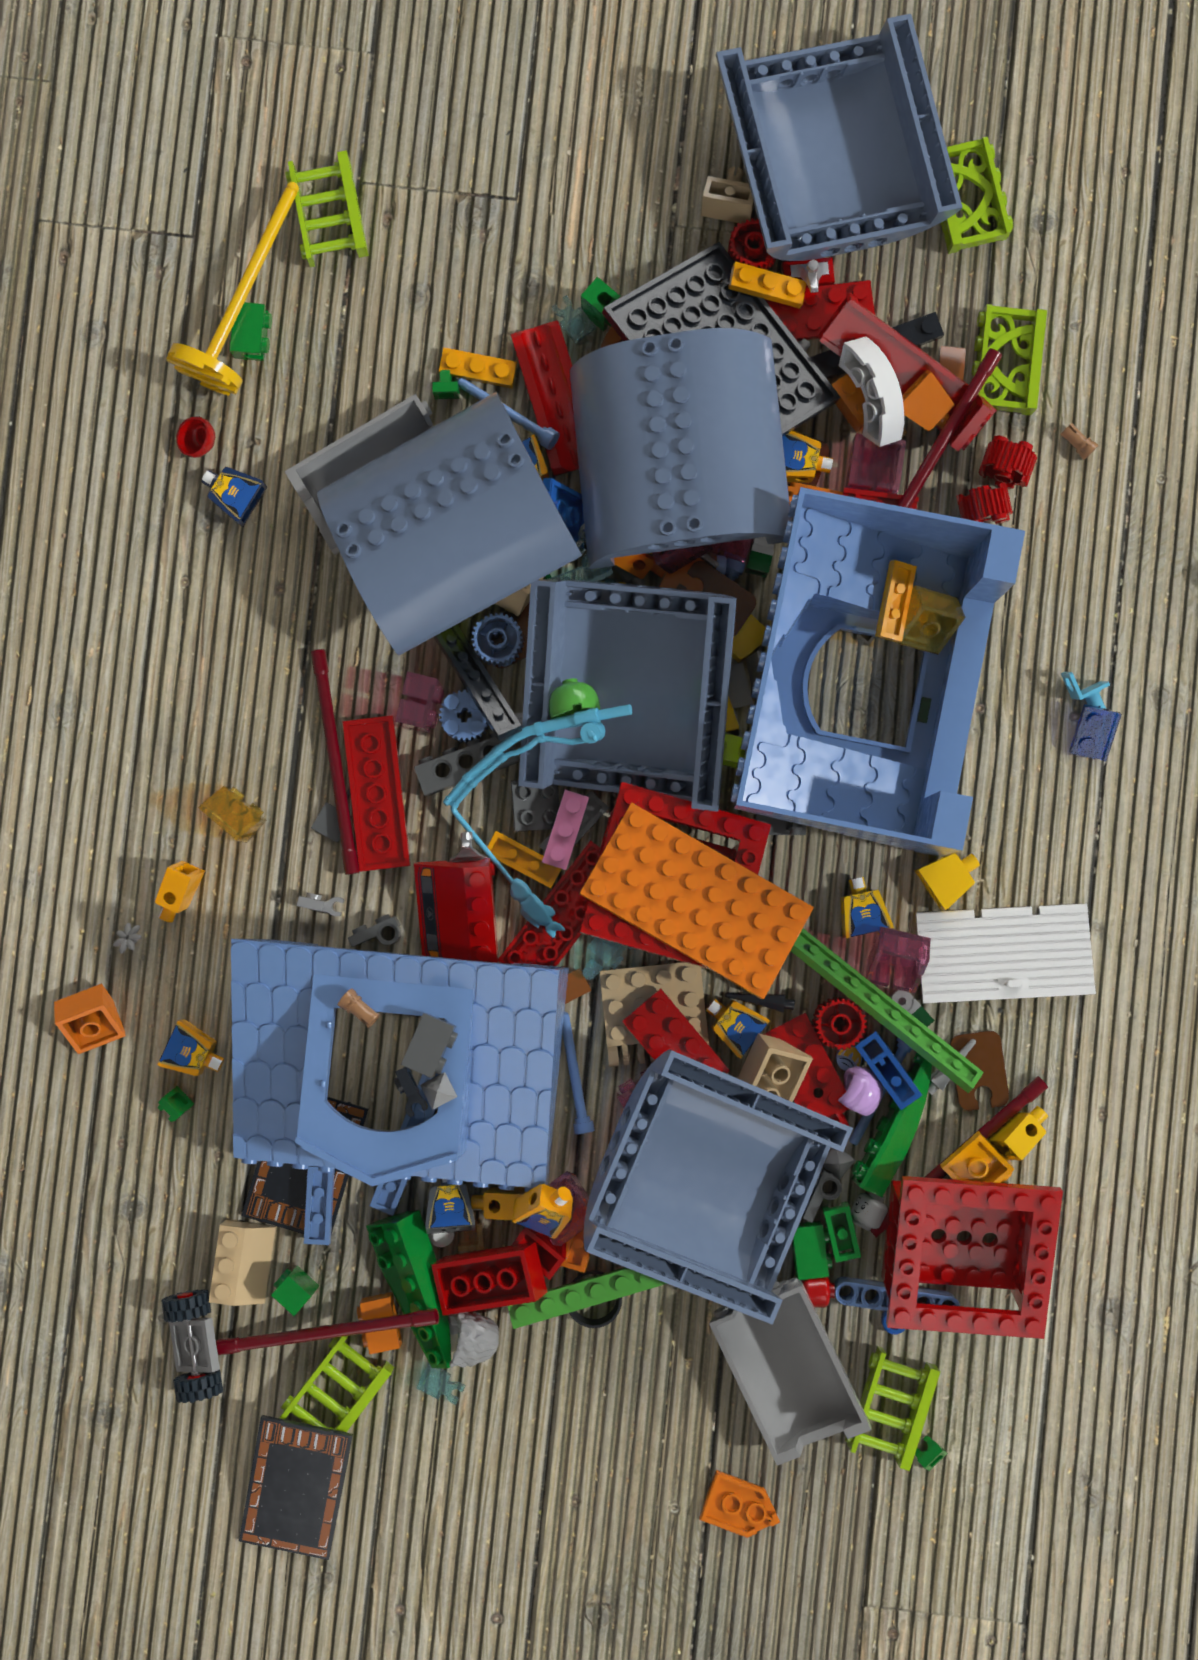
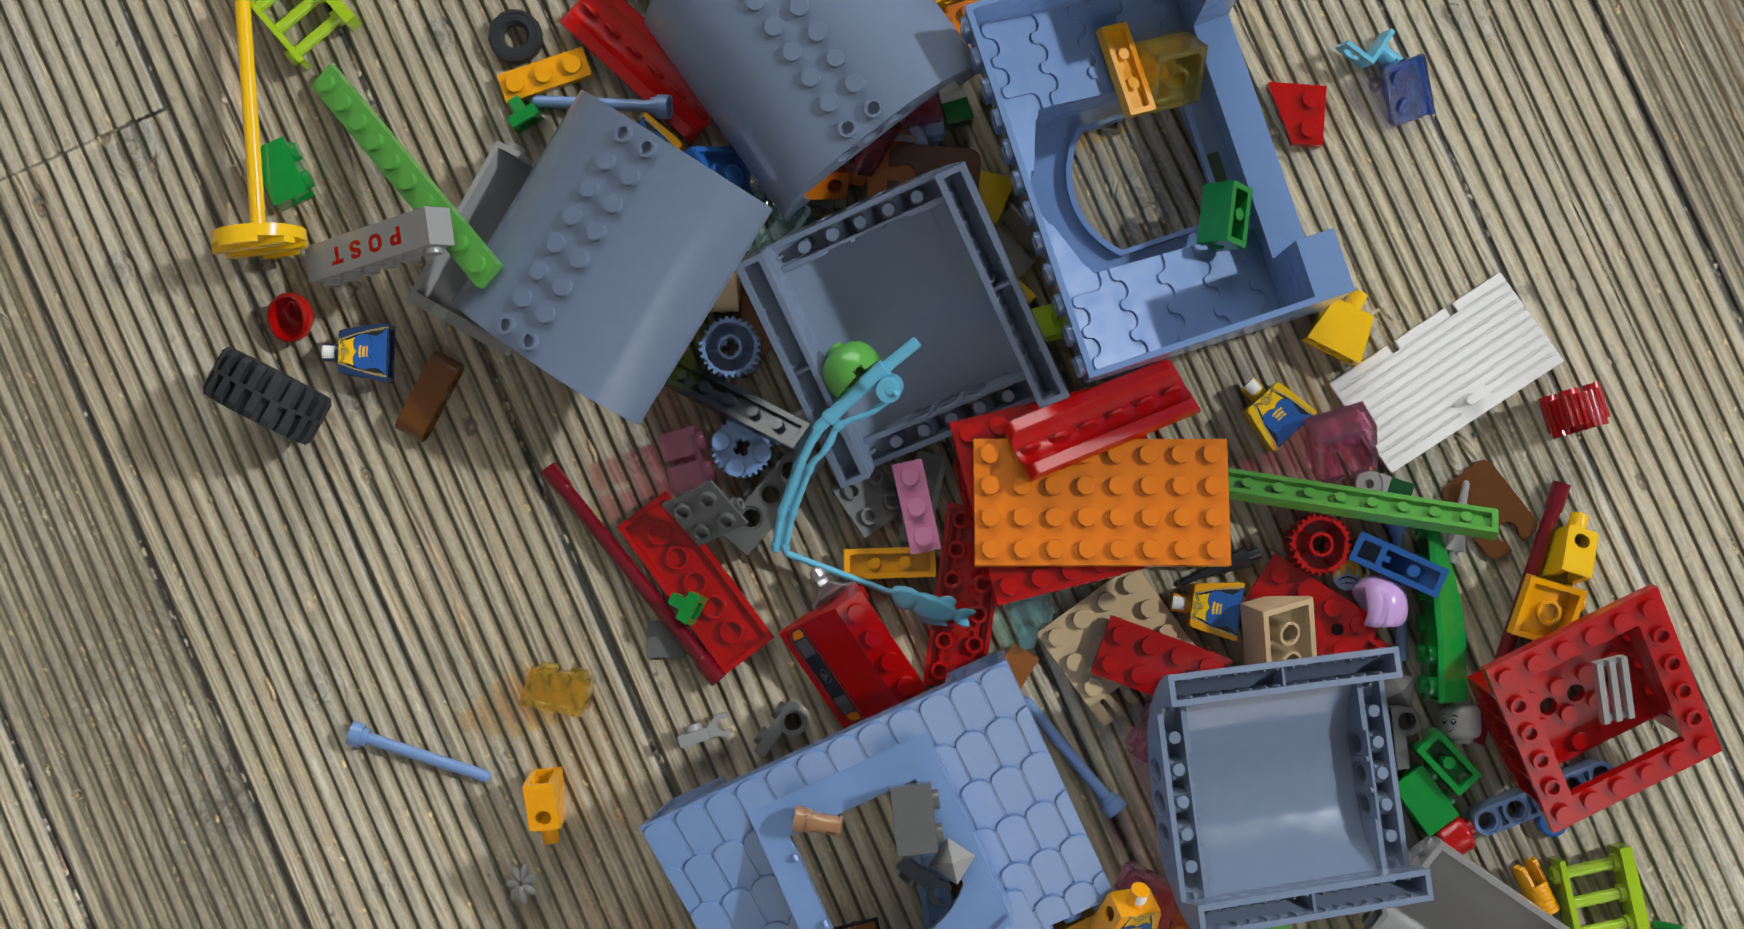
camera: 25 degrees left, 0 degrees up
(74, 765) = (360, 735): none -> medium blue piece
(146, 483) = (266, 396): none -> black tyre
(262, 551) = (429, 396): none -> reddish brown beam
(287, 422) = (380, 246): none -> light grey brick
(336, 383) = (403, 171): none -> bright green plate
(360, 807) = (689, 606): none -> green tile
(411, 747) = (706, 512): none -> dark grey hinge
(472, 312) = (528, 50): none -> black tyre
(730, 840) = (1100, 419): none -> red plate
(855, 1362) = (1535, 885): none -> light orange hinge
(907, 747) = (1224, 215): none -> green brick
(981, 1266) = (1624, 684): none -> light grey tile
(1009, 704) = (1300, 111): none -> red wing
(1081, 1033) = (1574, 410): none -> red brick

